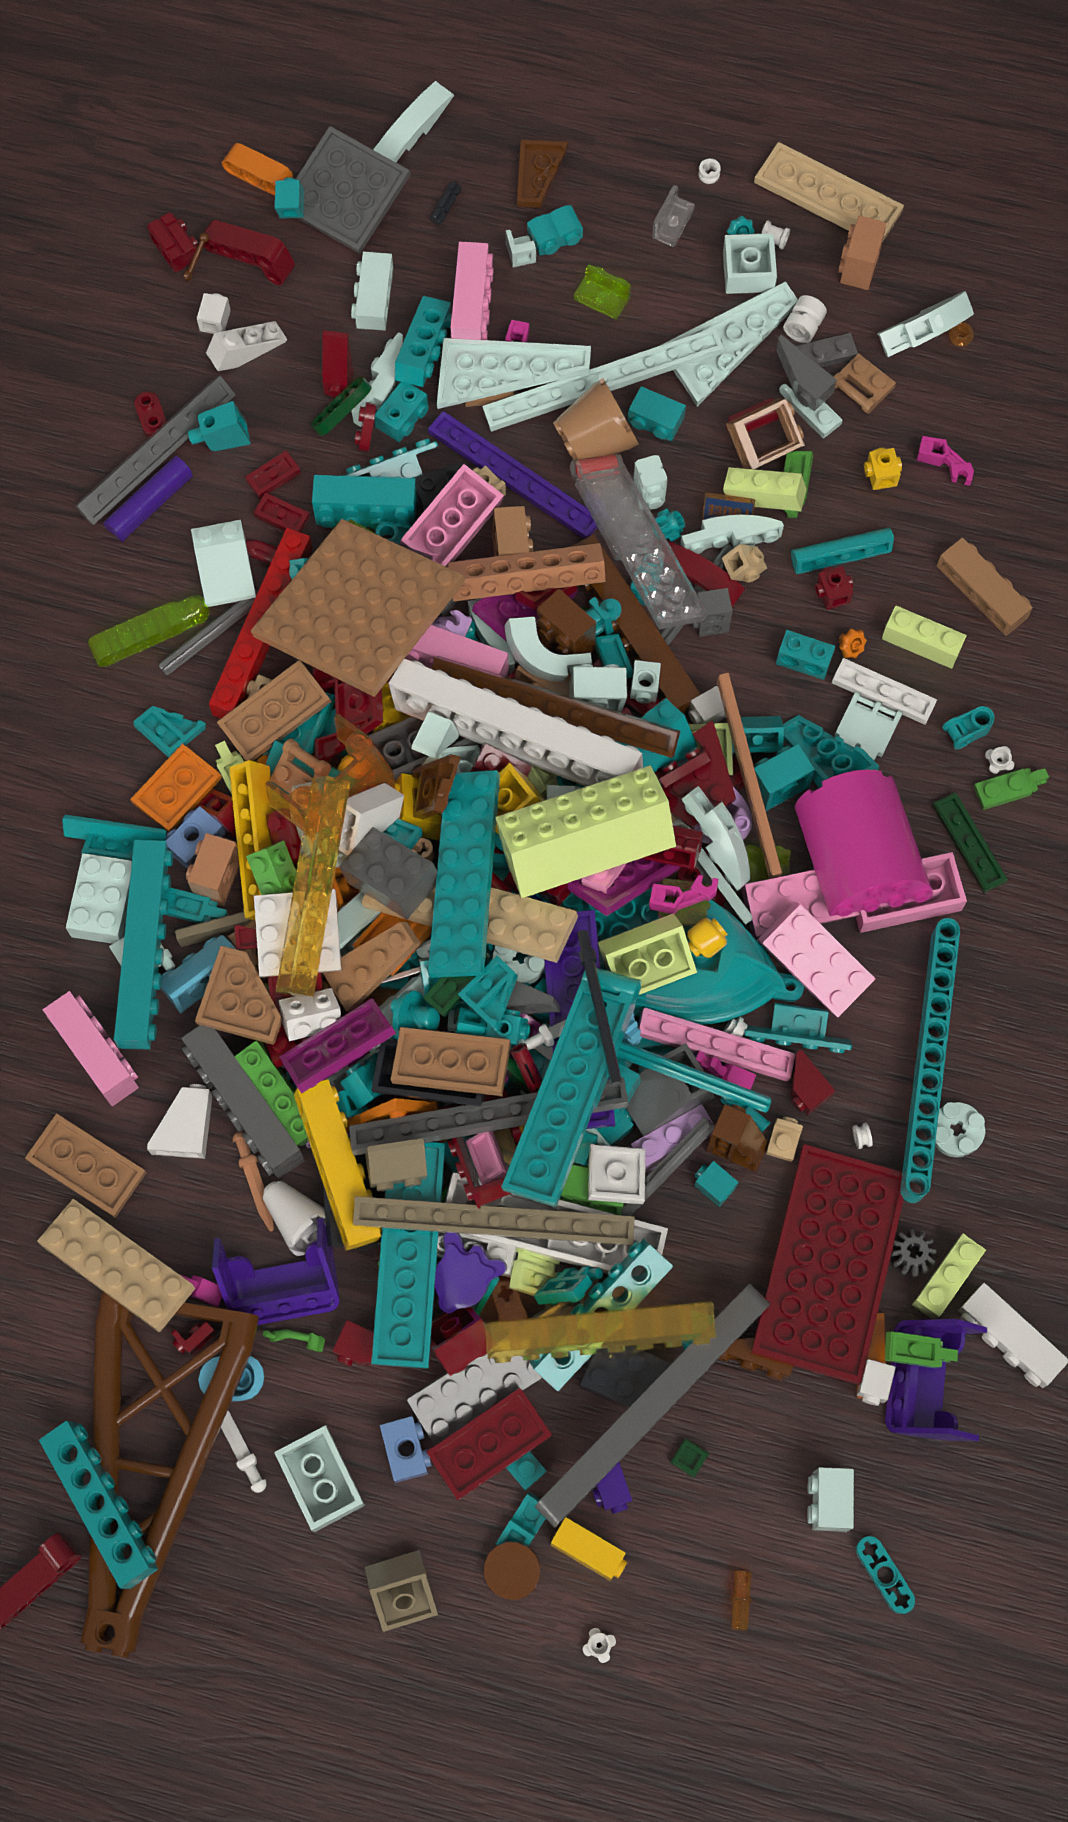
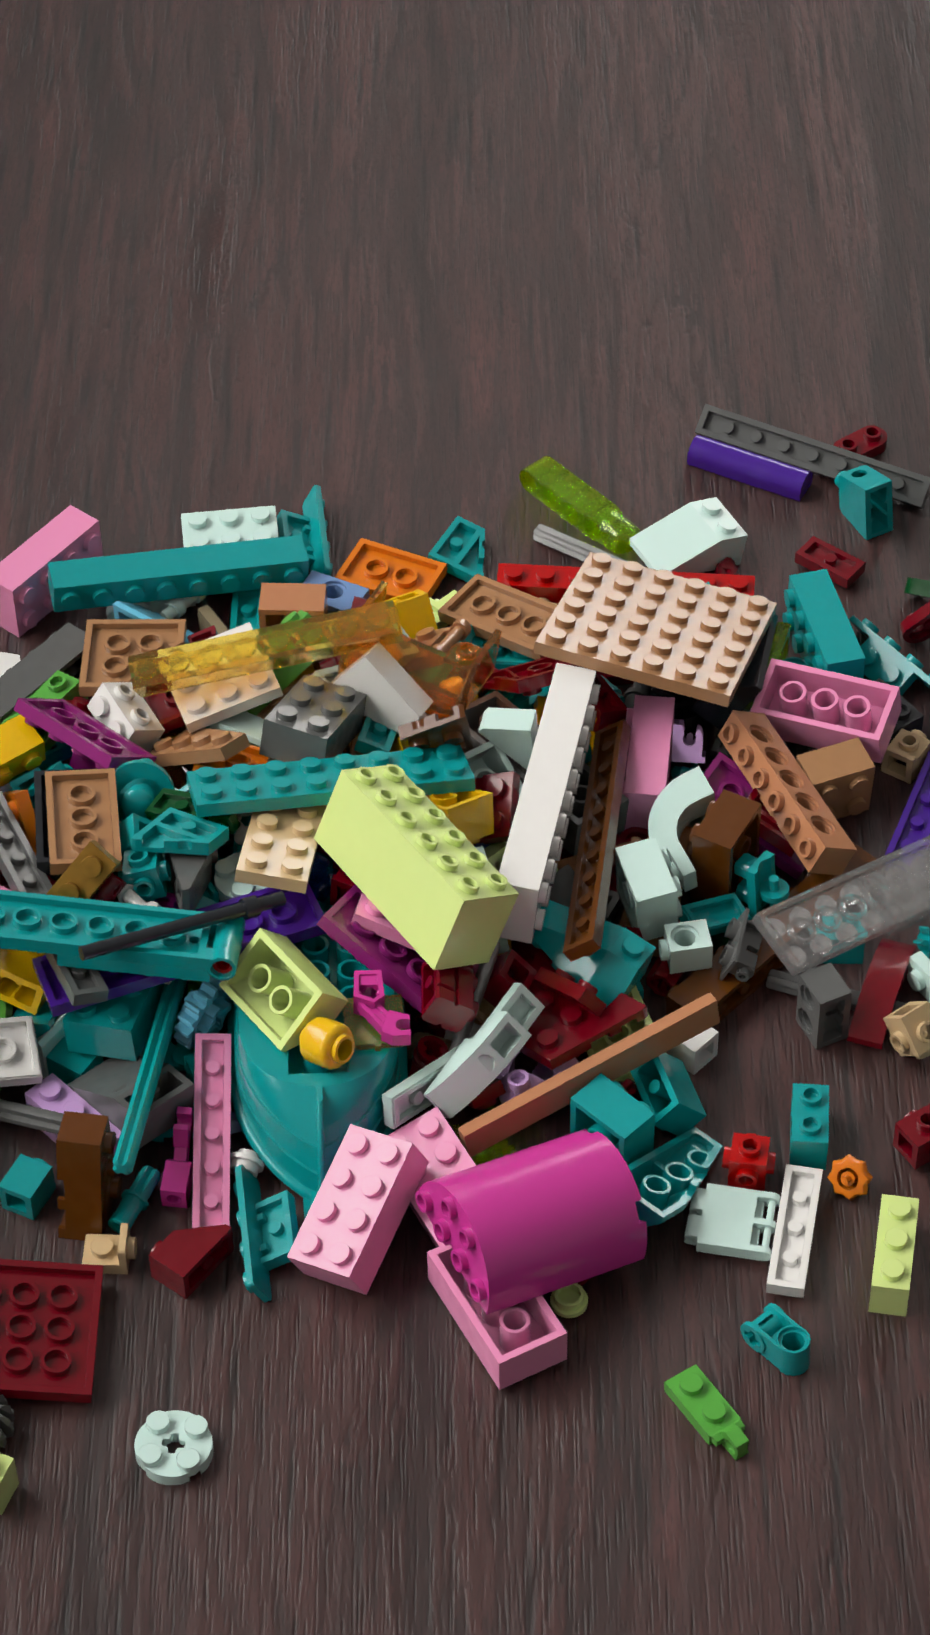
camera: 75 degrees right, 25 degrees down
(281, 514) = (777, 577): dark red plate -> none
(518, 1071) = (86, 873): none -> pearl gold plate
(645, 646) = (734, 956): none -> dark grey hinge
(825, 701) = (749, 1161): none -> red brick
(862, 1135) = (134, 1333): white bush -> none
(926, 1070) = (246, 1391): teal beam -> none
(970, 842) = (605, 1381): dark green tile -> none
(1004, 754) = (745, 1380): white plate -> none

